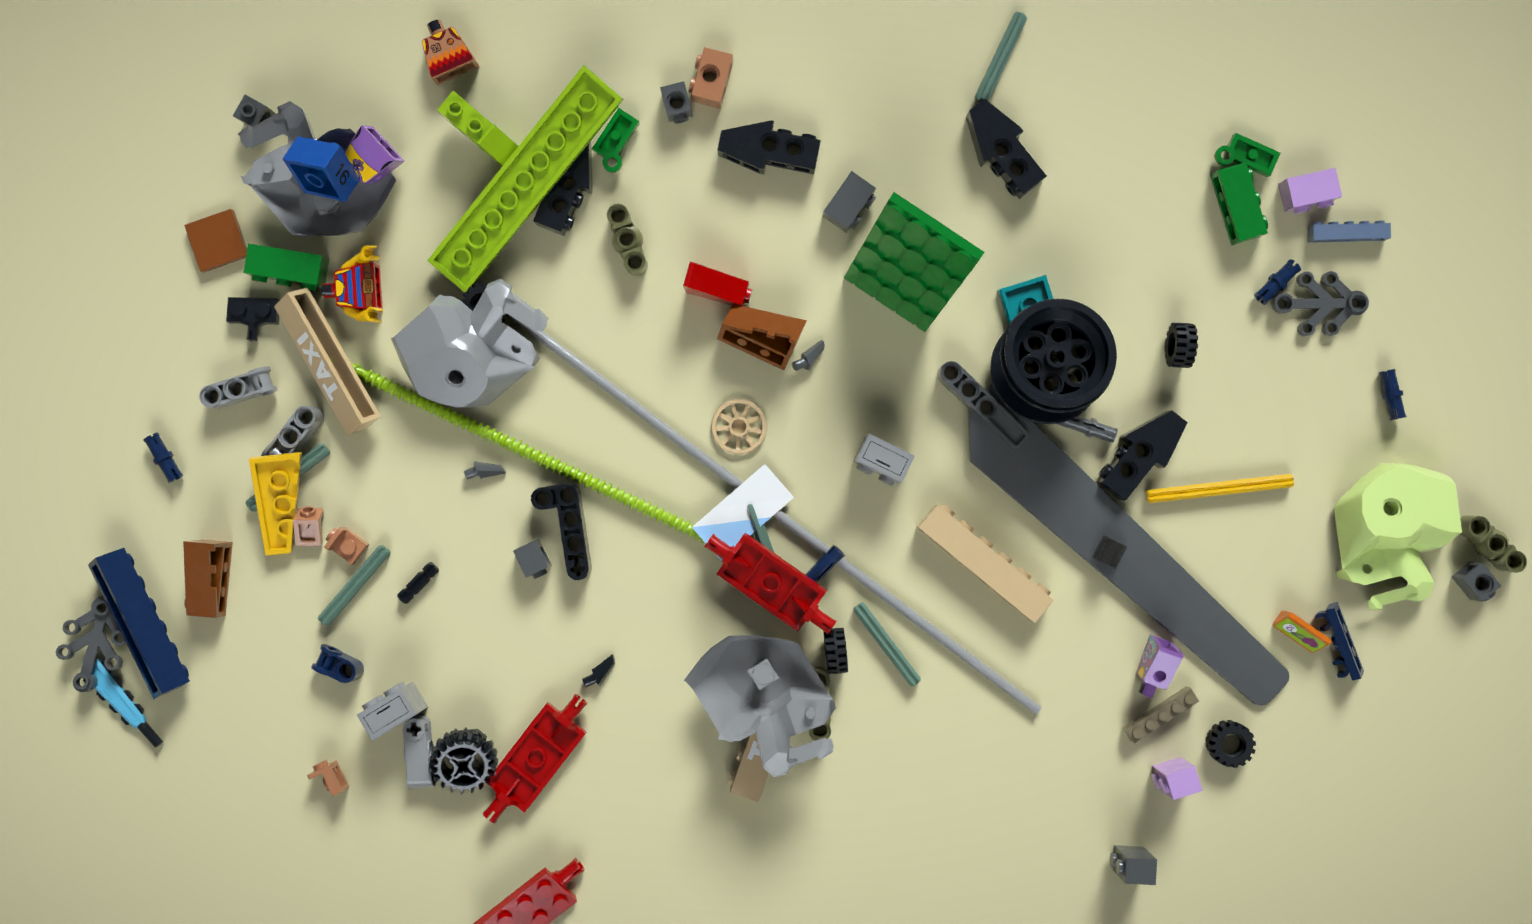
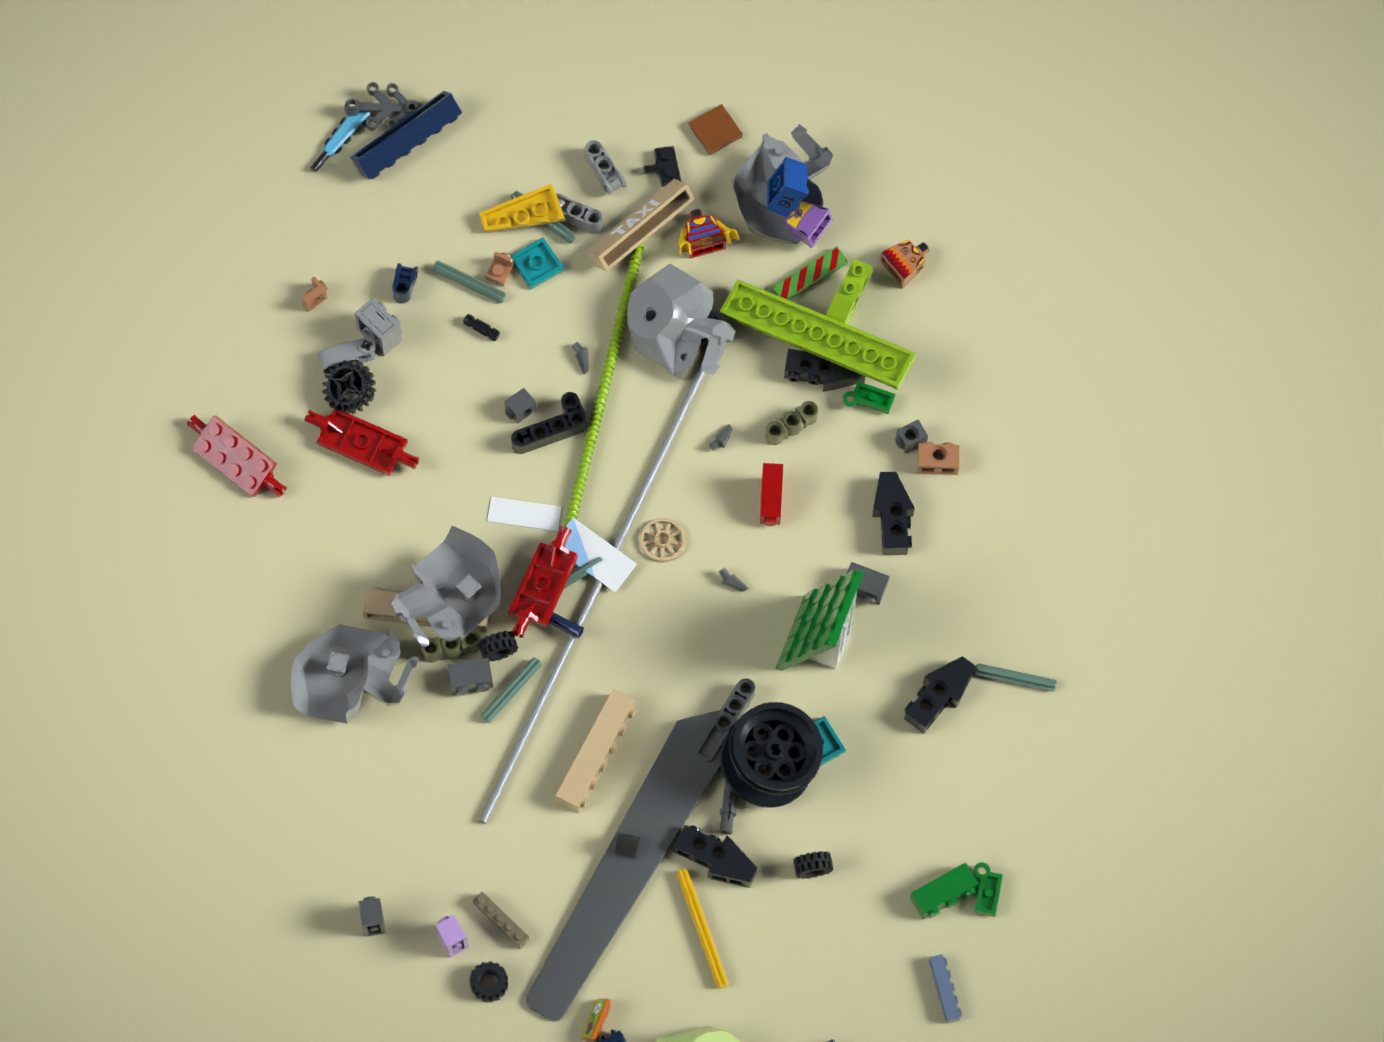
camera: 75 degrees right, 20 degrees down
(163, 457) = (537, 126): dark blue pin -> none
(206, 577) = (452, 175): dark orange wedge -> none
(252, 112) = (820, 132): dark grey brick -> none
(285, 267) = (707, 181): green brick -> none
(308, 526) = (507, 239): nougat bracket -> none
(347, 498) = (537, 263): none -> teal tile
(438, 172) = (810, 274): none -> bright green tile
(600, 672) = (440, 476): black bar -> none
(626, 327) = (721, 438): none -> dark grey bar
(669, 581) = (524, 513): none -> white sticker
(762, 334) = (740, 537): dark orange wedge -> none
(826, 834) = (341, 666): none -> light grey piece
(862, 690) = (470, 676): none -> dark grey brick
(884, 459) = (661, 648): light grey brick -> none
(1158, 665) = (542, 903): medium lavender torso -> none
(1277, 281) = (887, 938): dark blue pin -> none
(1310, 190) = (970, 946): lavender brick -> none
(1323, 302) = (879, 981): dark grey plant -> none

